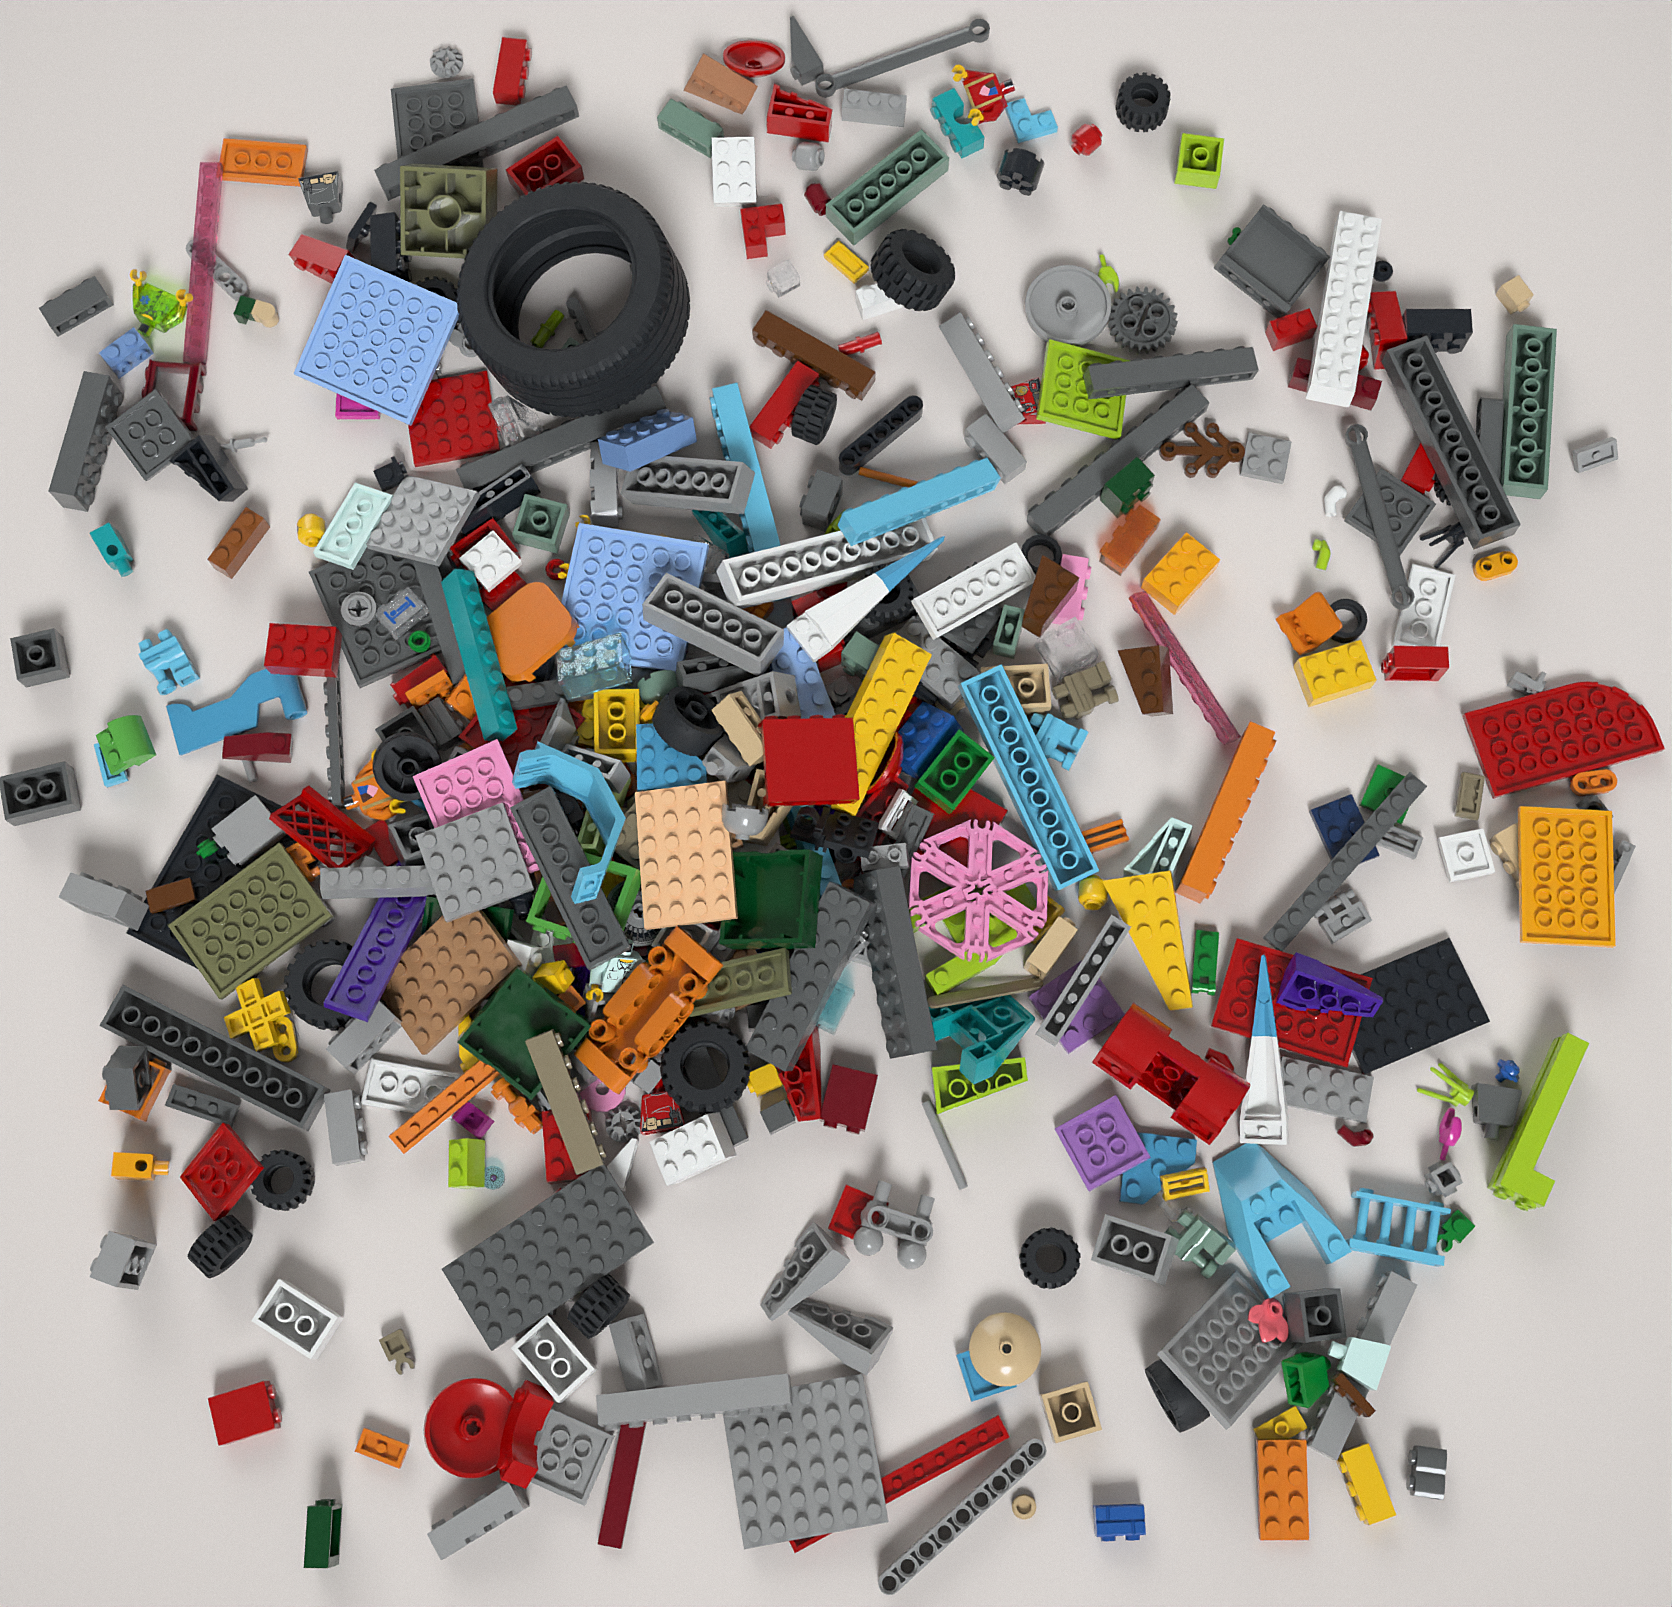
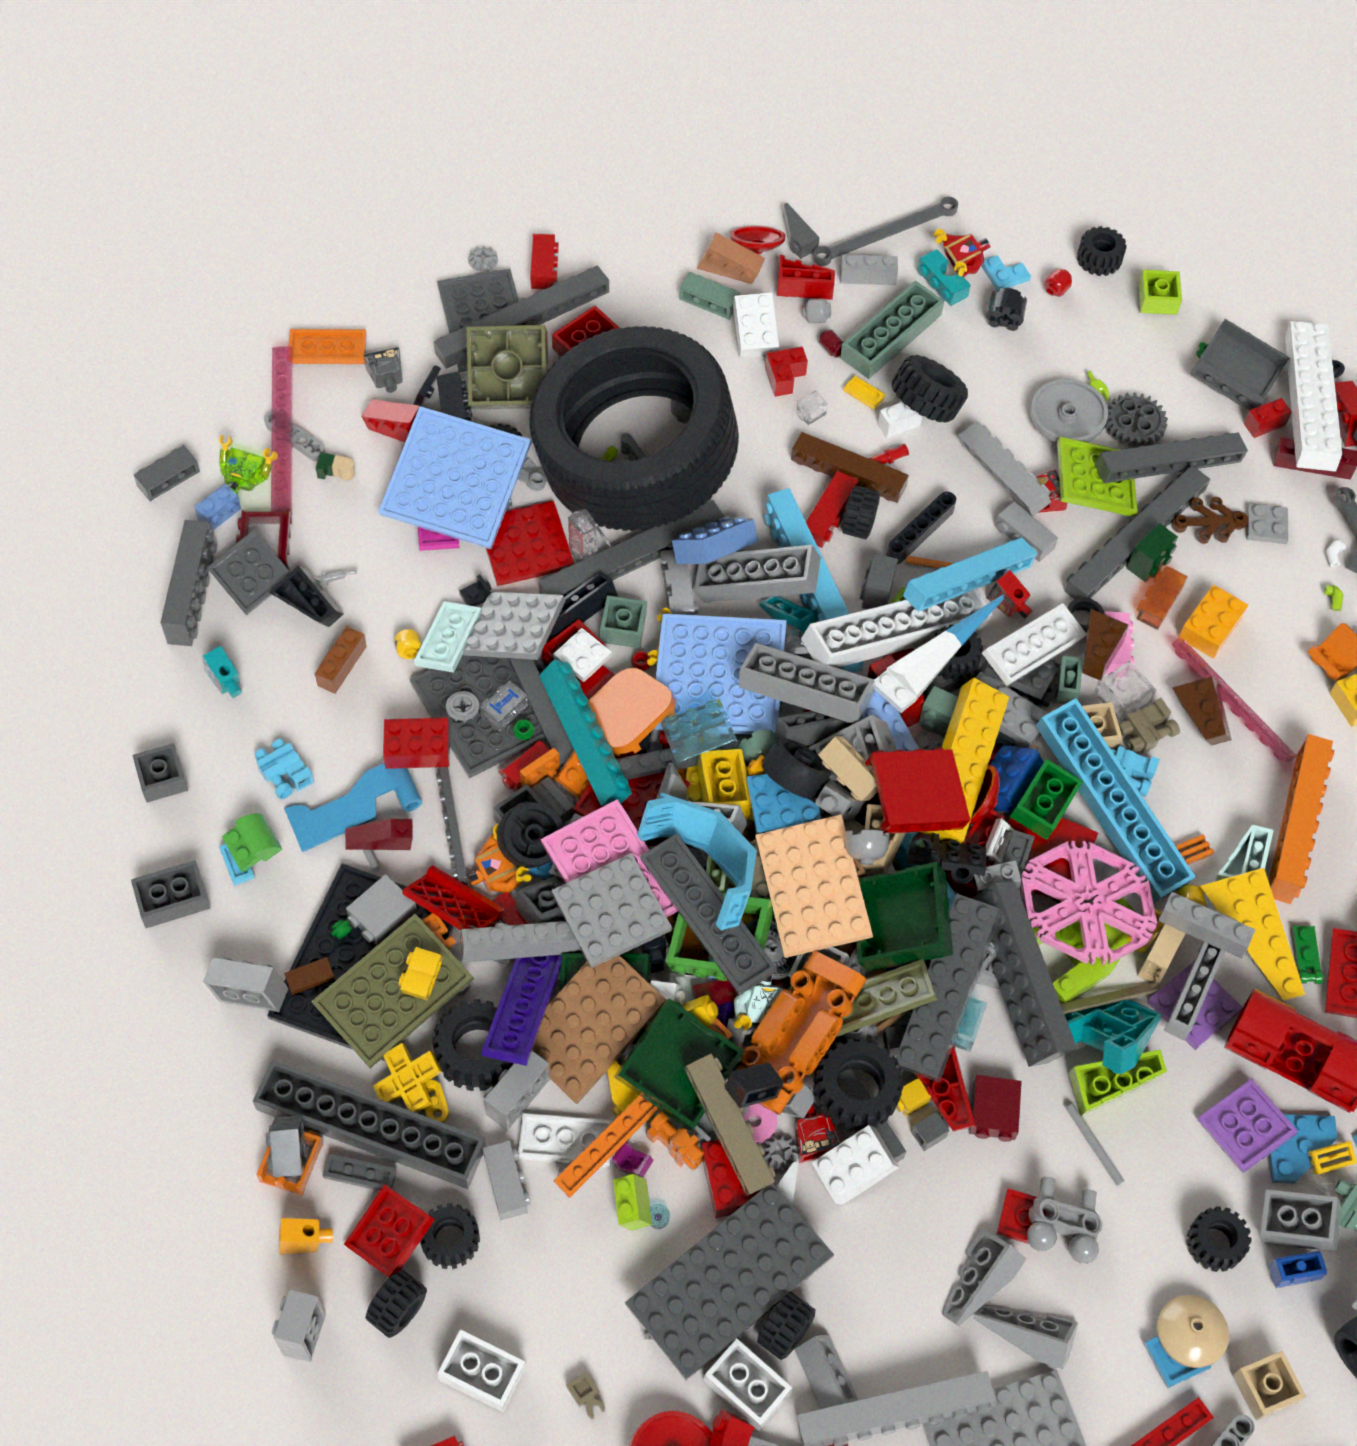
camera: 10 degrees left, 15 degrees down
(277, 909) = (421, 973): none -> yellow brick
(590, 1067) = (754, 1085): none -> black brick
(958, 521) = (1014, 595): none -> red torso
(1094, 931) = (1206, 925): none -> light grey brick
(1123, 1297) = (1297, 1269): none -> blue brick

